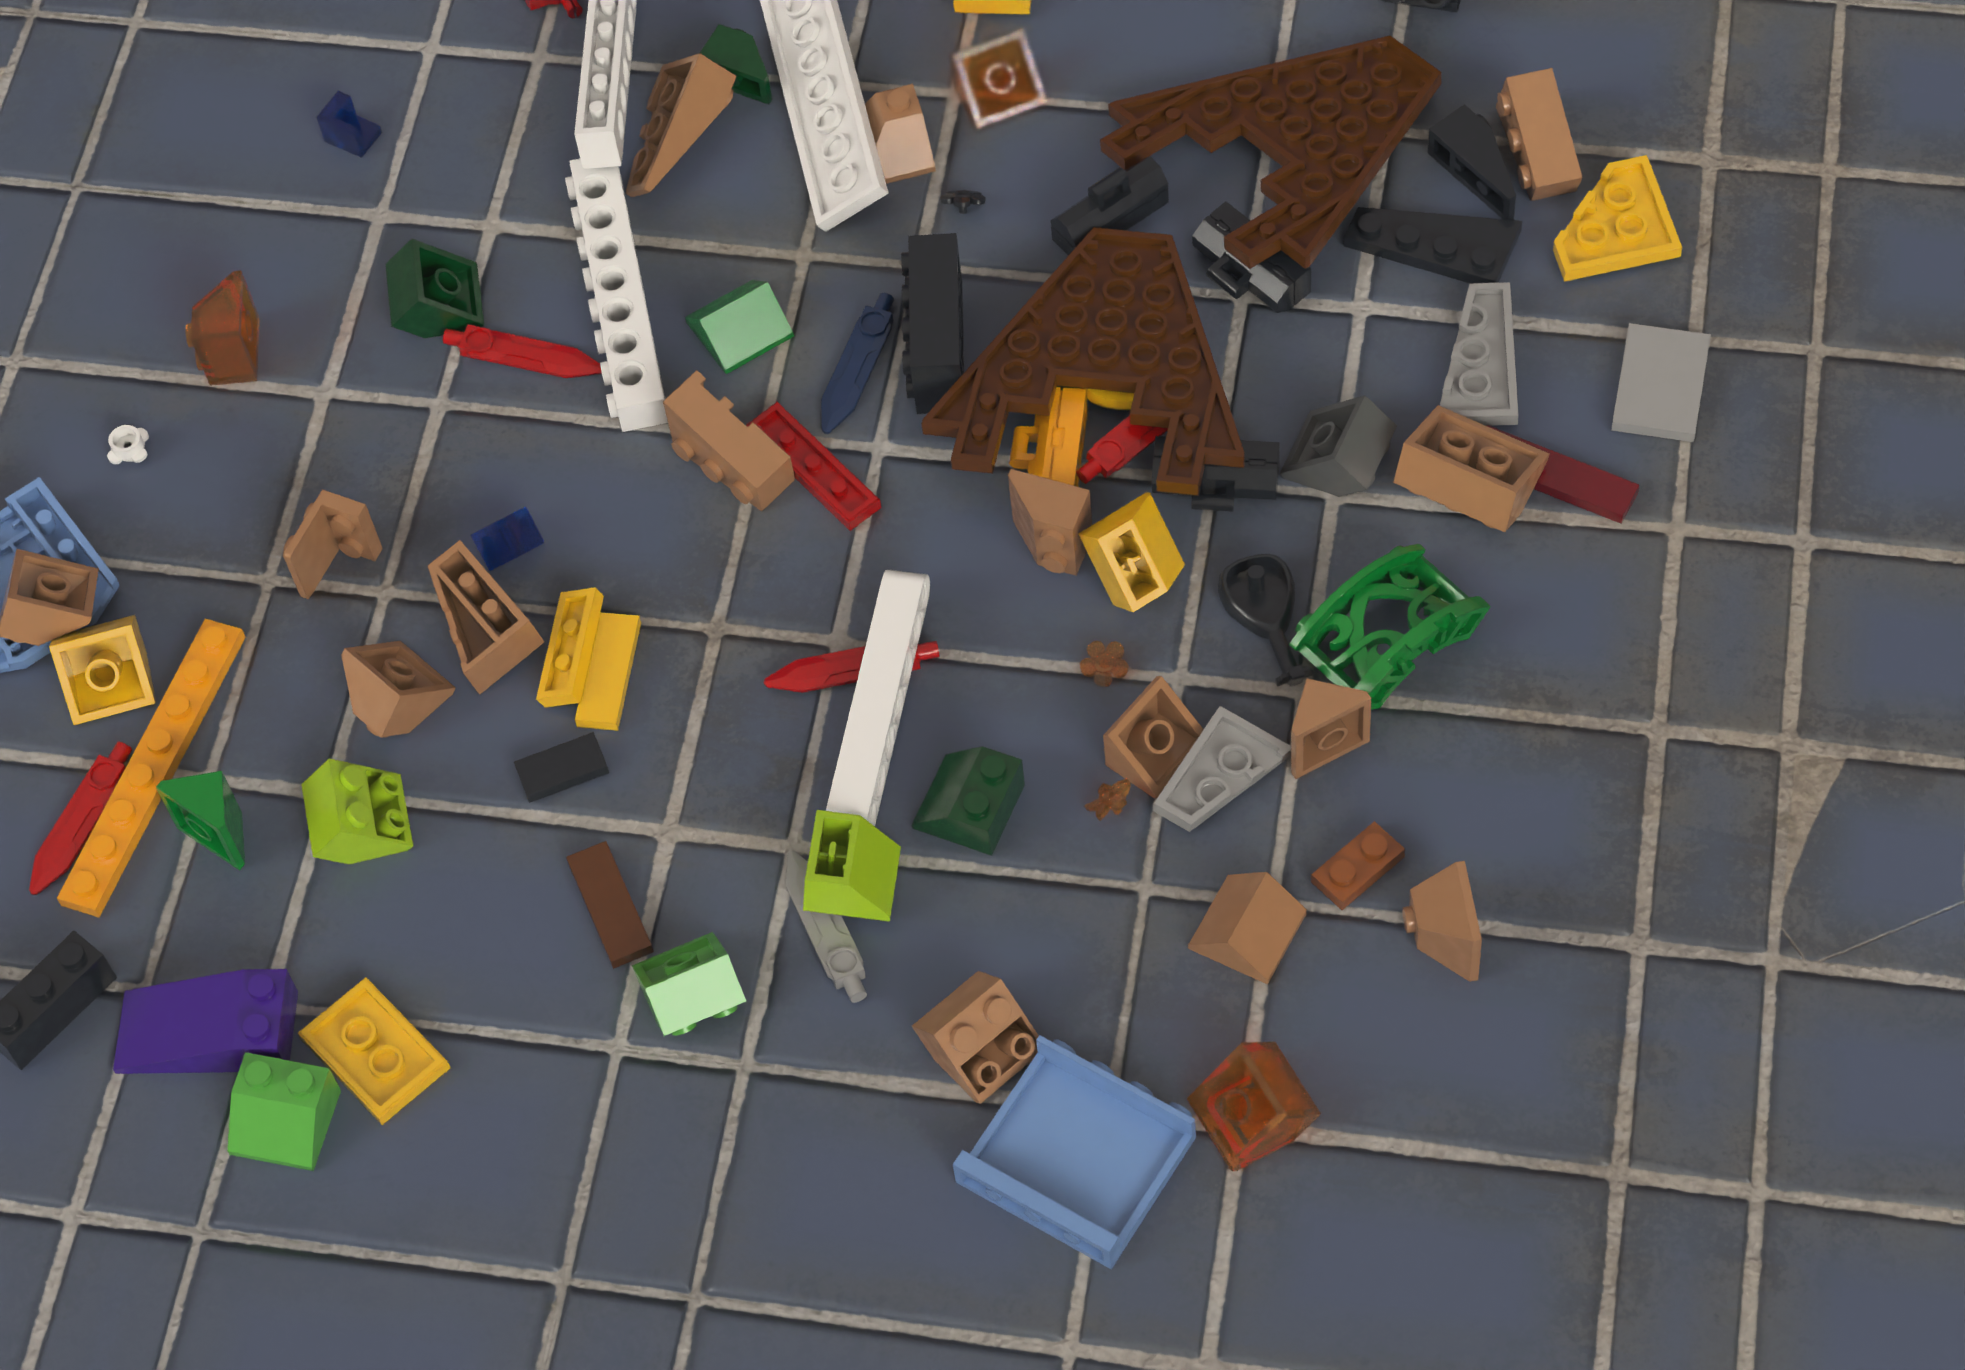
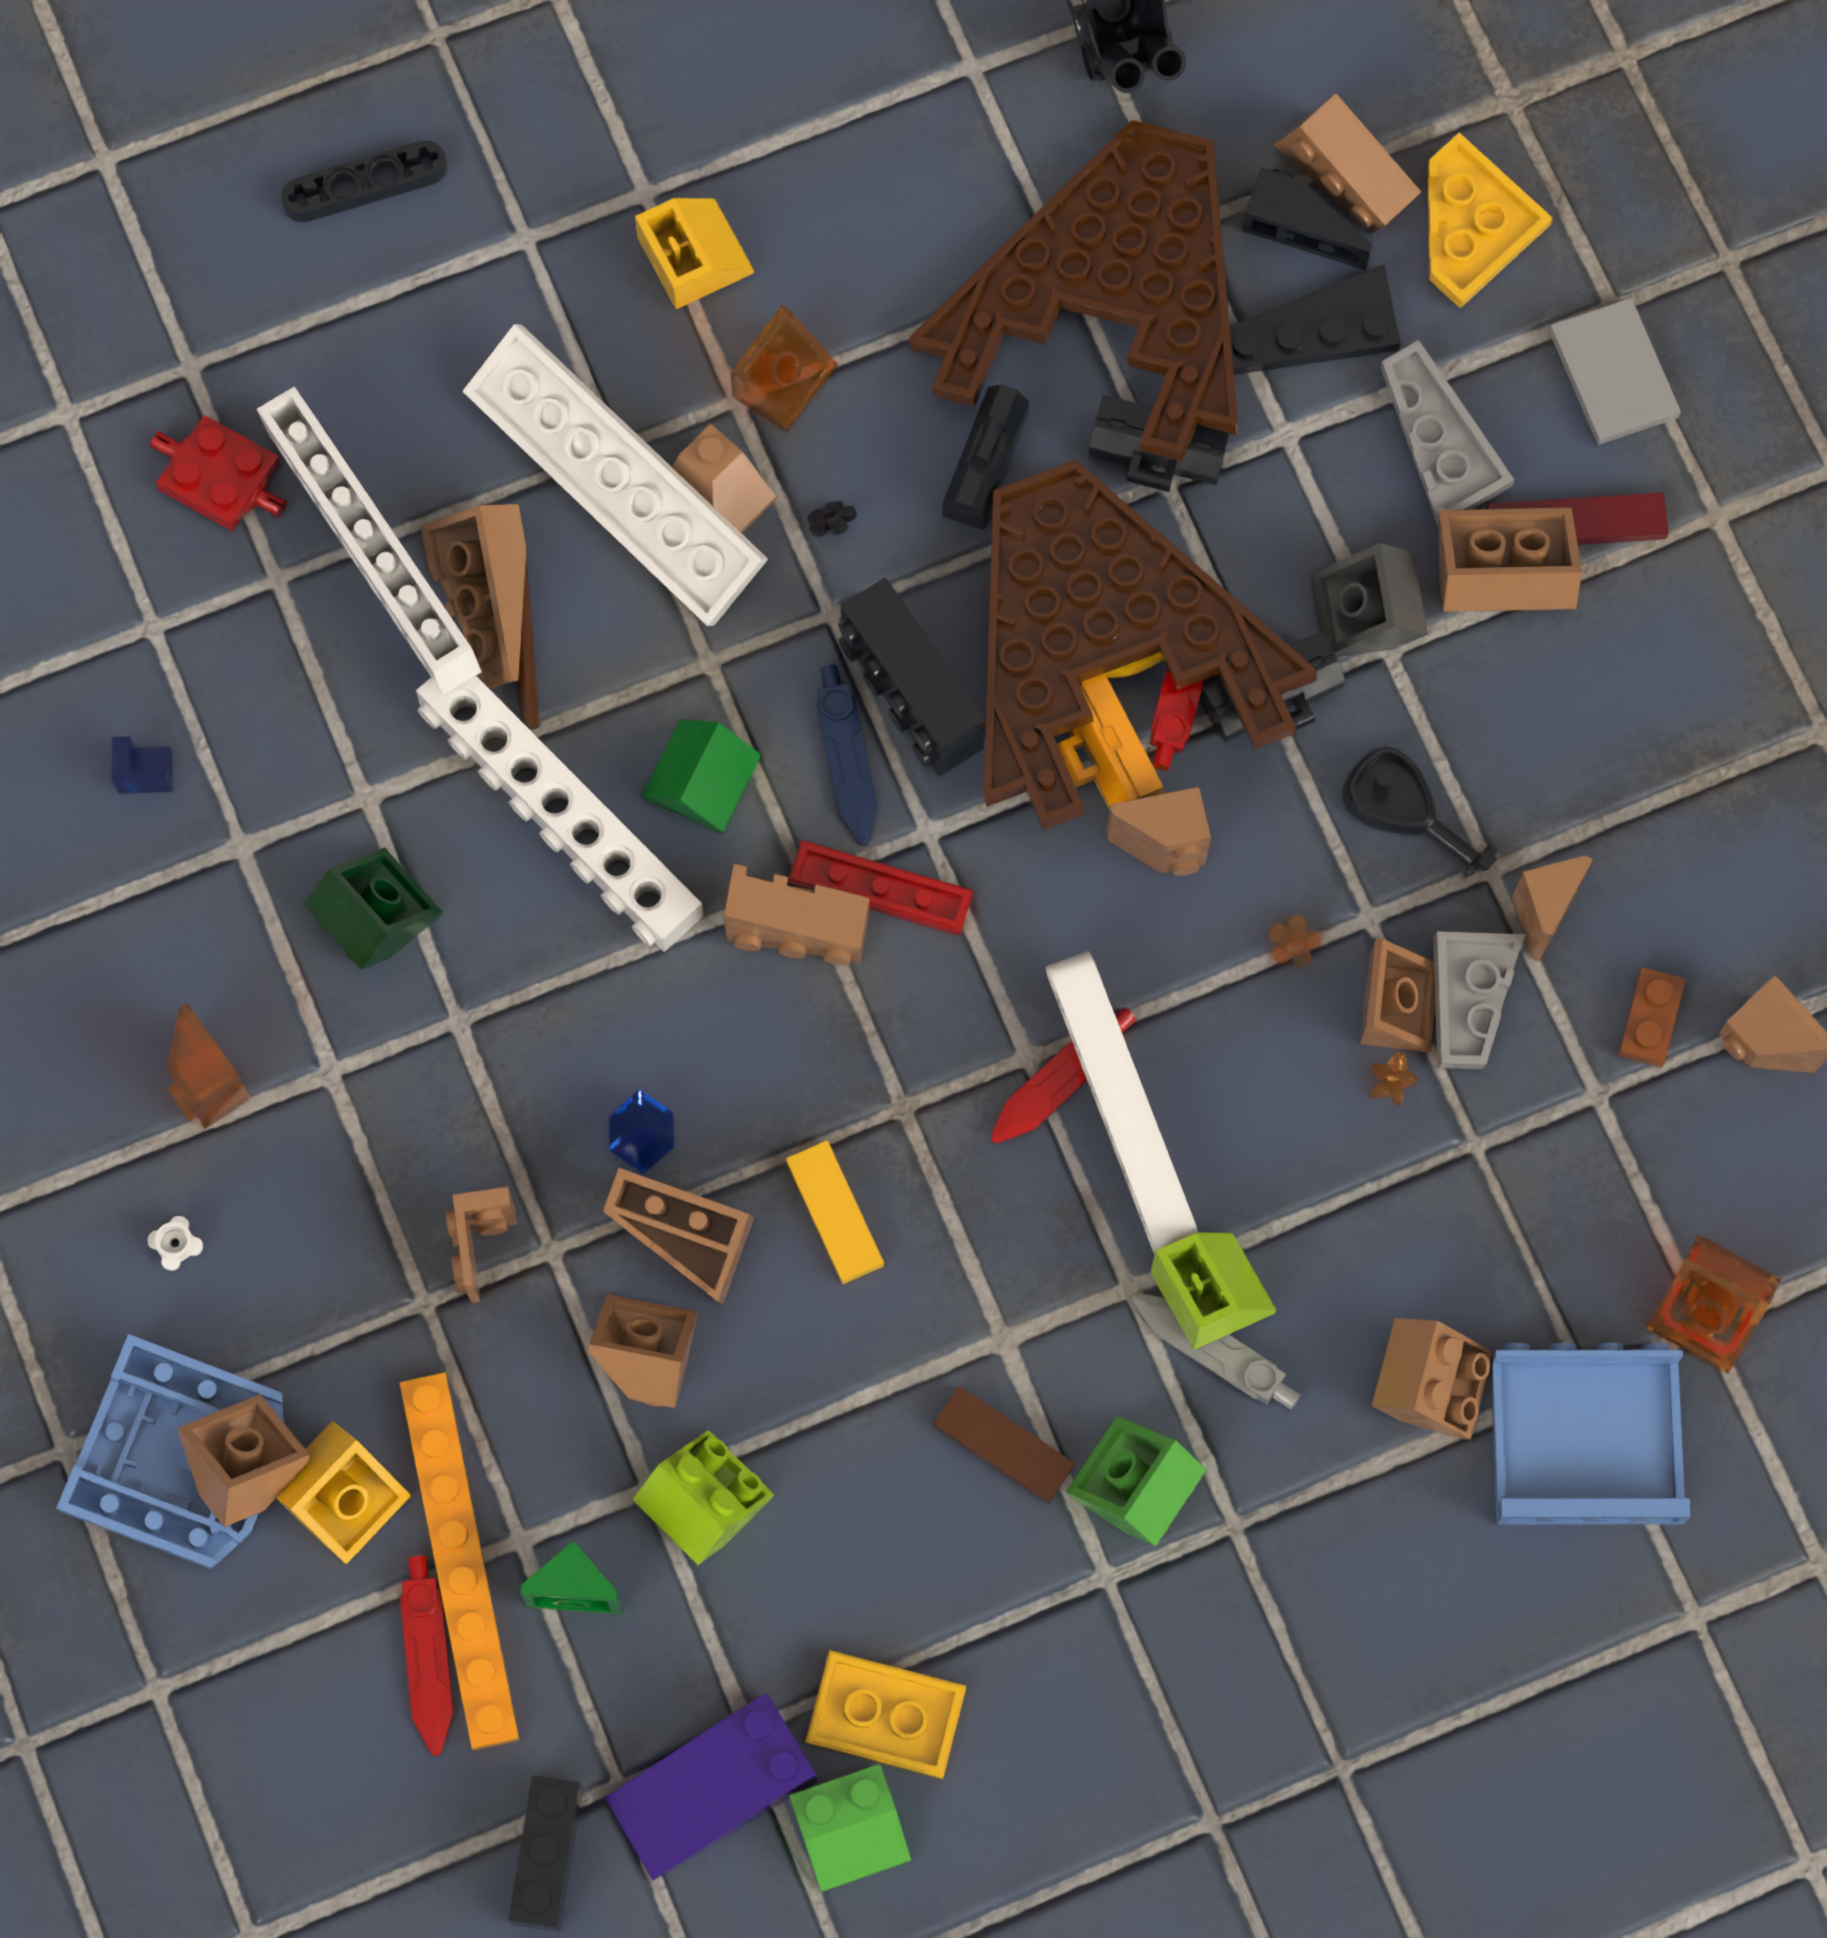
camera: 40 degrees left, 15 degrees up
(521, 352) = (505, 921): red piece -> none
(561, 767) = (860, 1335): black tile -> none
(570, 647) = (785, 1210): yellow plate -> none
(676, 180) = (527, 673): none -> reddish brown bar
(739, 55) = (500, 479): dark green slope -> none
(972, 798) = (1266, 1150): dark green slope -> none
(1133, 553) = (1263, 823): yellow slope -> none
(1249, 925) = (1593, 1131): medium nougat slope -> none
(1450, 620) = (1582, 718): green fence -> none

